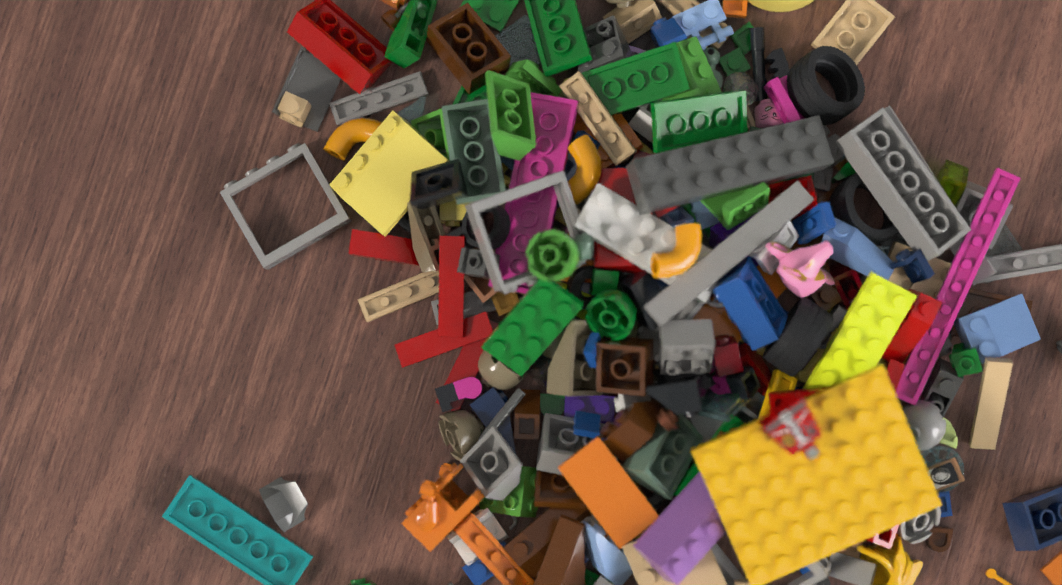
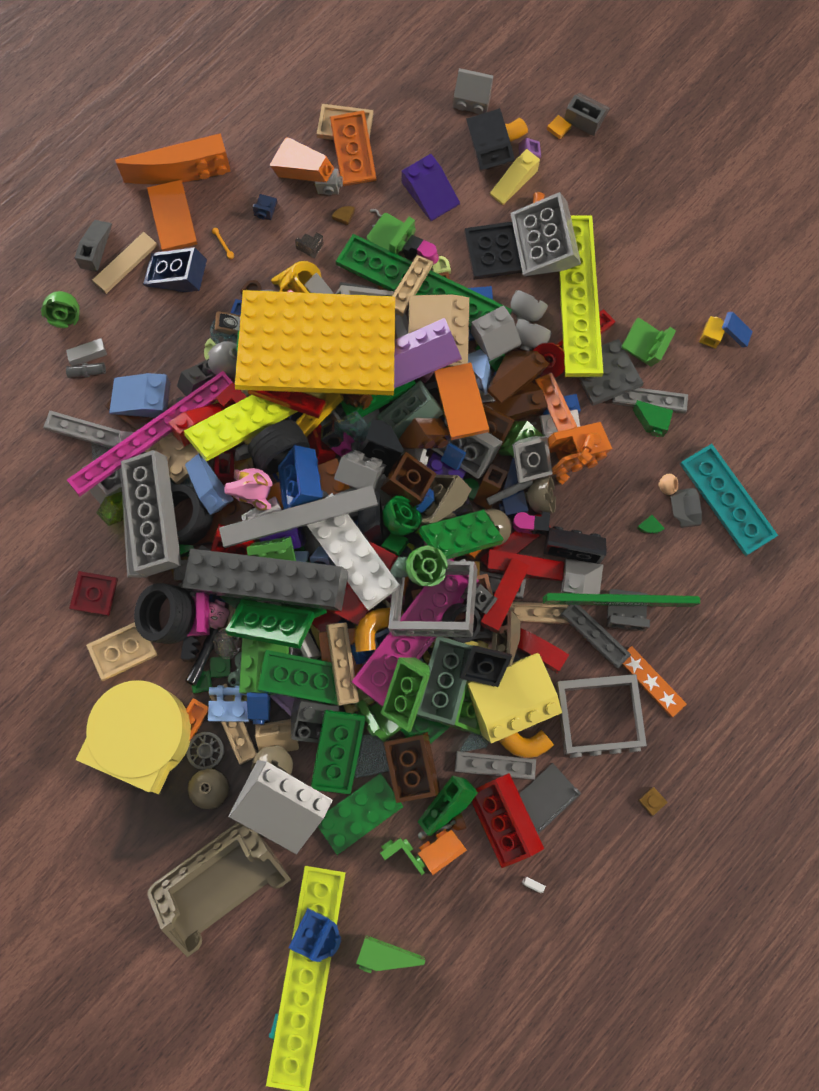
camera: 160 degrees left, 10 degrees down
(189, 139) = (652, 801): none -> pearl gold plate
(243, 273) = (653, 683): none -> orange tile
(294, 109) = (563, 785): tan brick -> none
(303, 342) = (627, 616): none -> dark grey bracket
(315, 346) = (621, 600): none -> green tile
(316, 521) = (668, 484): none -> light nougat piece
(317, 460) = (651, 526): none -> green tile
(329, 295) = (595, 635): none -> dark grey tile
(371, 355) = (581, 577): none -> light grey slope
(396, 391) = (575, 545): none -> black slope
(668, 419) = (398, 426): copper plate -> none
(682, 256) = (333, 527): light orange cylinder -> none
(726, 355) = (334, 451): dark red brick -> none
(793, 427) = (318, 371): torso -> none
(814, 223) = (225, 514): blue plate -> none
(914, 265) = (173, 457): dark blue bracket -> none
(919, 77) = (93, 593): none -> dark red plate
(965, 360) = (174, 382): green bracket -> none
(990, 403) = (171, 351): tan tile -> none

